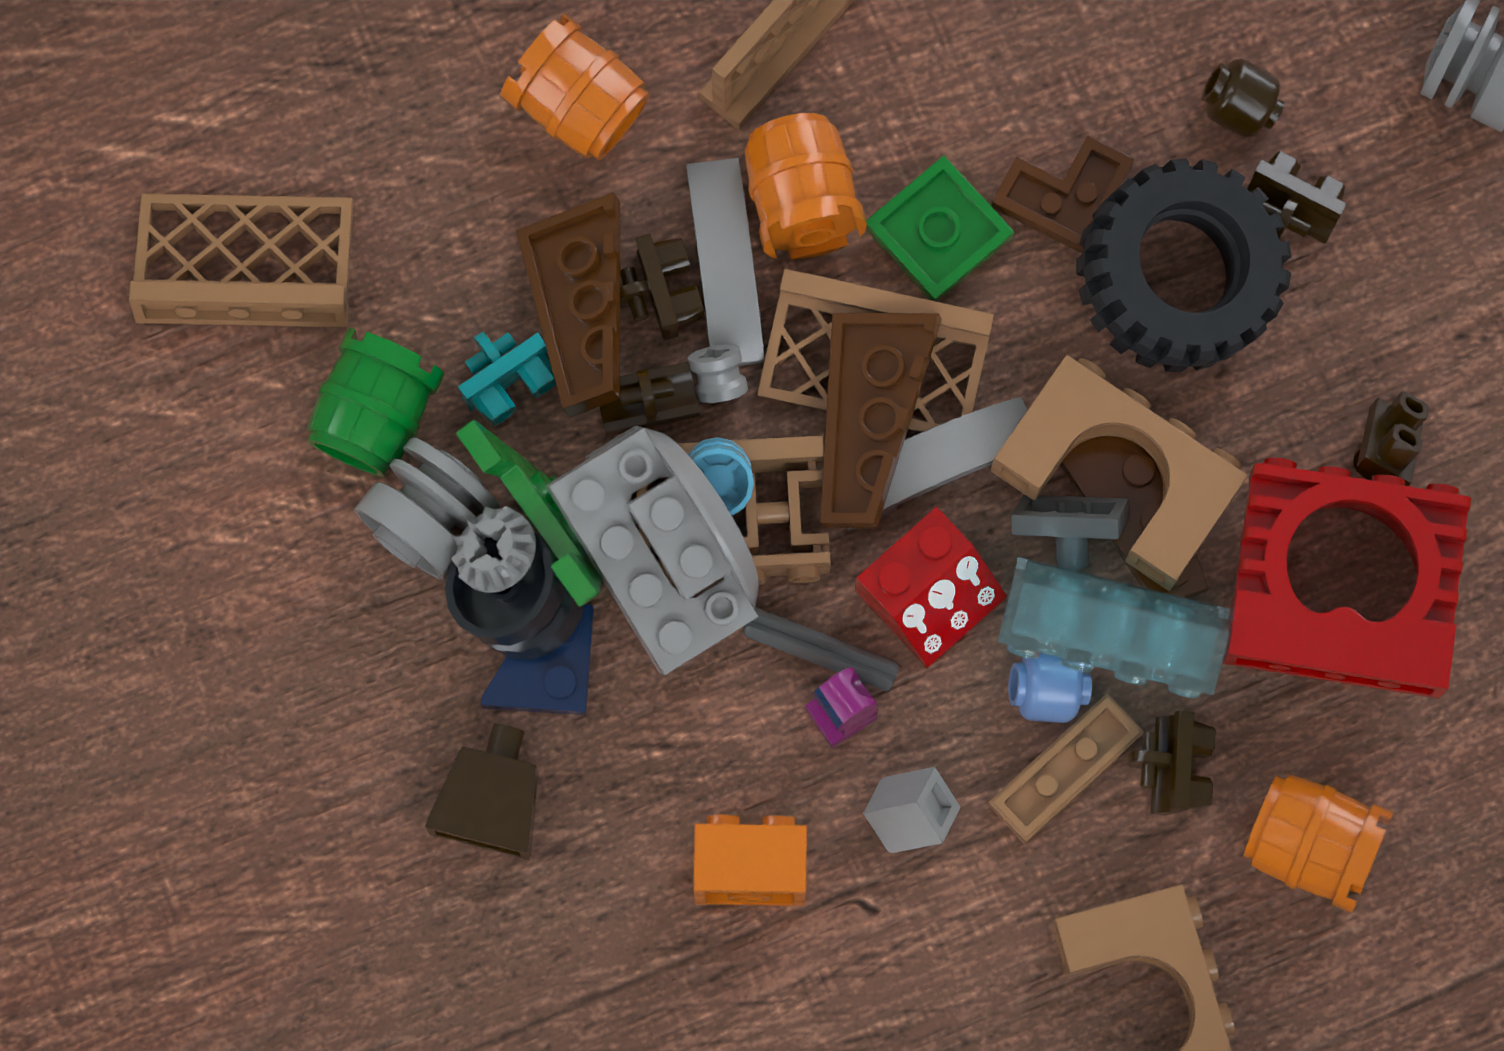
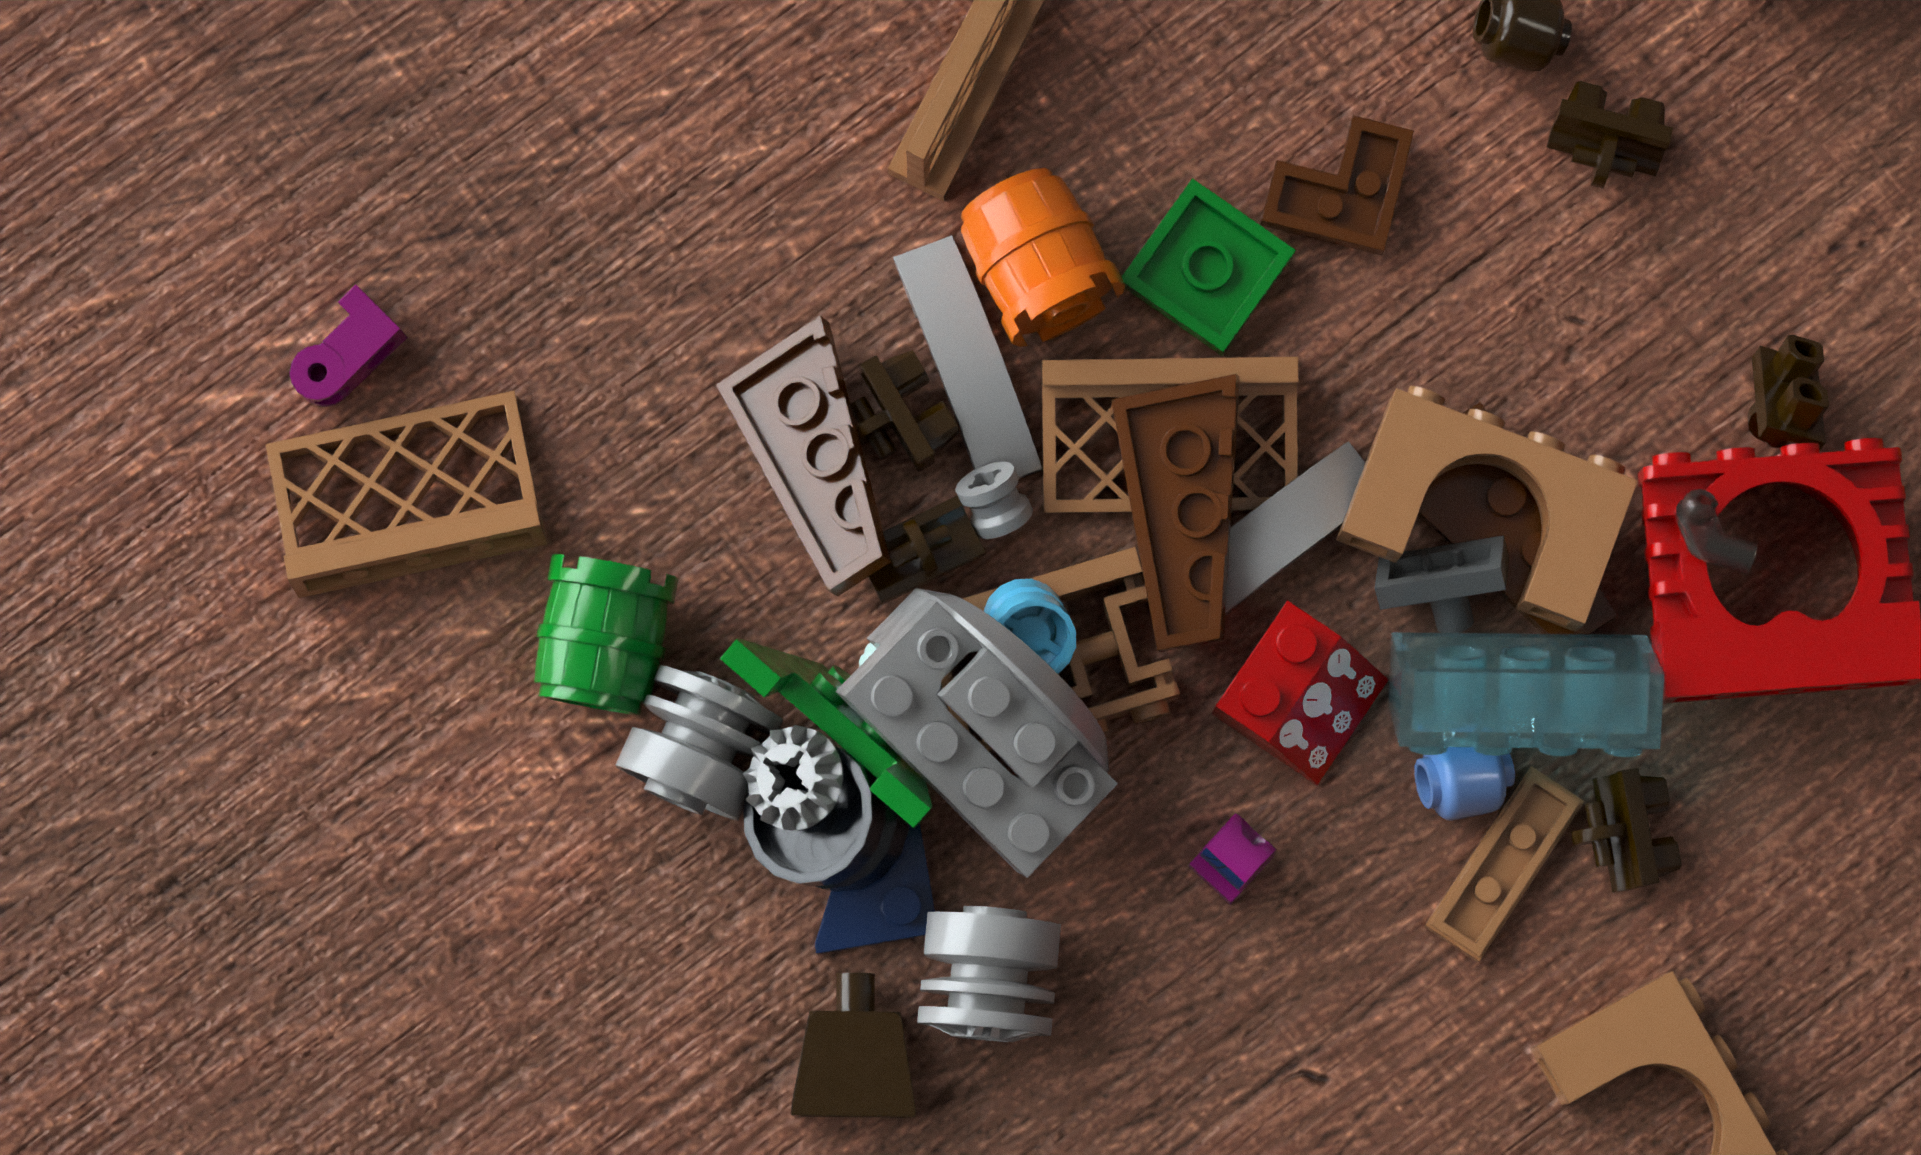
camera: 15 degrees left, 5 degrees up
(226, 136) = (348, 354): none -> magenta leg
(487, 388) = (768, 540): teal hips -> none
(576, 89) = (747, 203): orange piece -> none
(619, 741) = (989, 972): none -> light grey wheel
(750, 862) = (1175, 1065): orange brick -> none
(821, 649) = (1197, 794): dark grey axle -> none
(912, 810) = (1341, 956): light grey panel -> none
(1233, 222) = (1575, 214): black tyre -> none
(1291, 530) = (1705, 536): none -> clear smoke arm
(1316, 839) = (1813, 881): orange piece -> none

